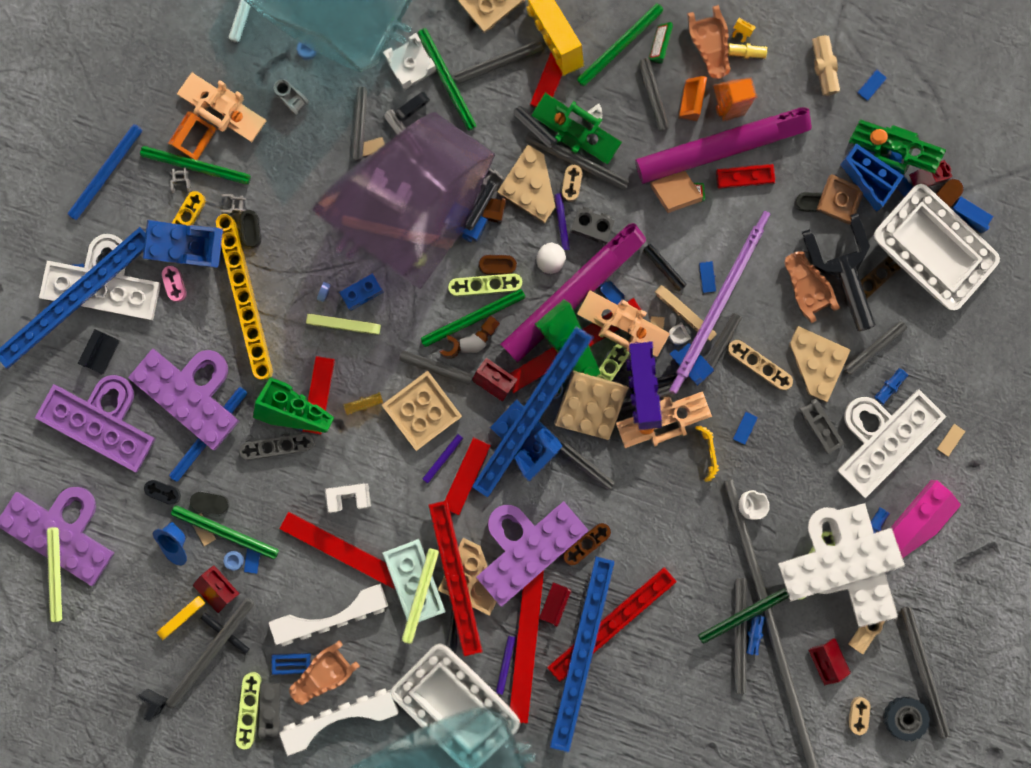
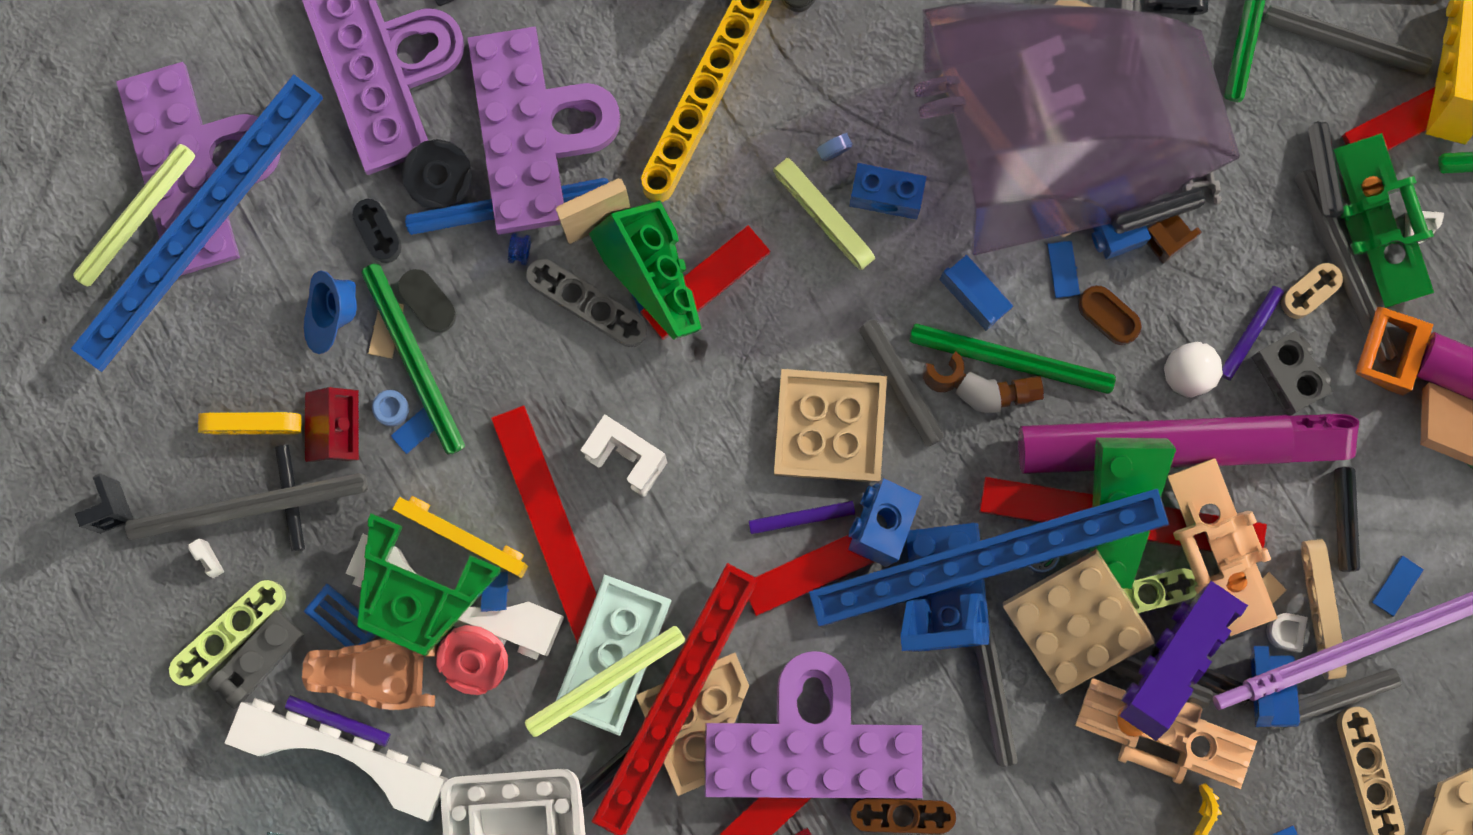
camera: 40 degrees right, 5 degrees down
(84, 555) = (197, 223): none -> blue plate
(166, 446) = (437, 173): none -> black tile
(209, 686) = (201, 550): none -> white tile
(229, 448) = (519, 249): none -> clear blue bush
(245, 409) = (587, 211): none -> tan tile
(312, 636) = (406, 605): none -> green wing
(325, 706) = (337, 721): none -> dark purple bar
(336, 581) = (418, 512): none -> yellow plate
(343, 598) = (495, 595): none -> blue window
(358, 634) = (472, 659): none -> coral tile
(363, 403) = (757, 346): clear yellow pin -> none
(434, 302) = (976, 292): none -> blue panel
(462, 261) = (1063, 269): none -> blue window
(477, 421) = (898, 508): none -> blue brick
(485, 281) = (1065, 333): yellowish green beam -> none
(494, 379) = (969, 469): dark red panel -> none
(530, 185) = (1248, 244): tan plate -> none
(612, 292) = (1241, 489): blue piece -> none
(635, 177) = (1412, 355): none -> orange tile

